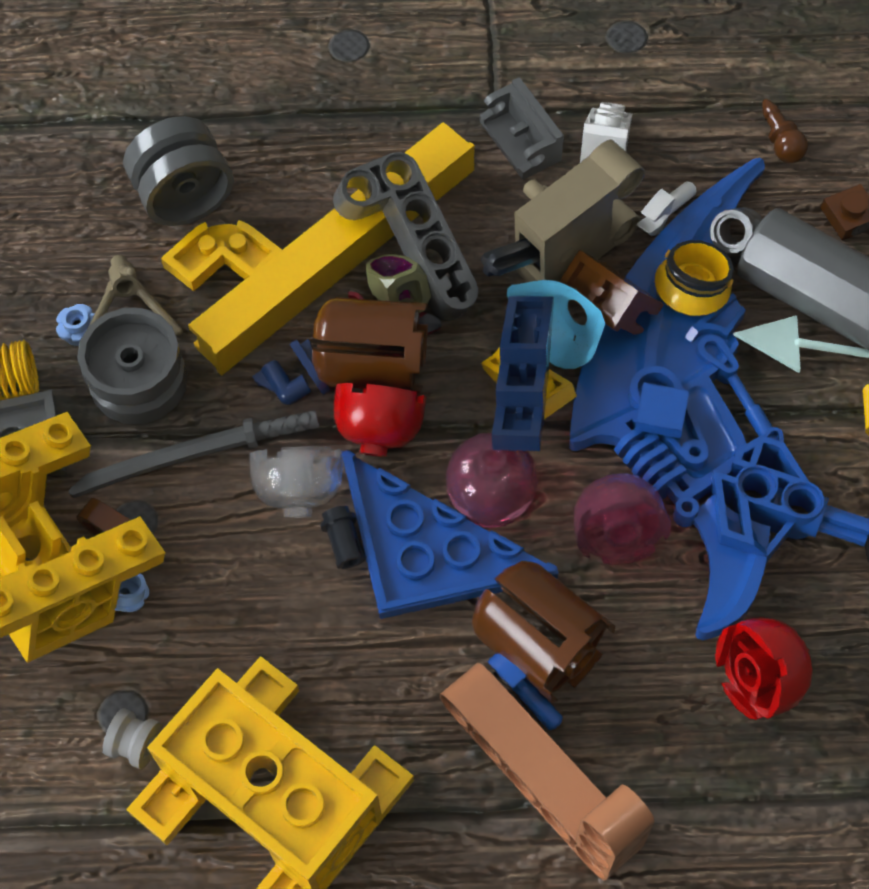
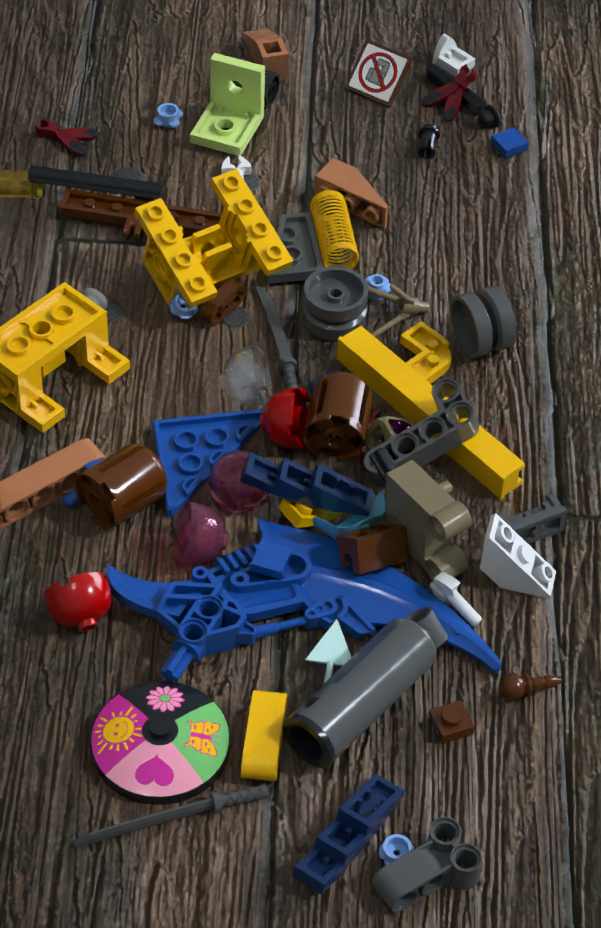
camera: 90 degrees right, 15 degrees down
(343, 537) = (207, 405): black pin -> none
(695, 278) = (382, 596): yellow piece -> none

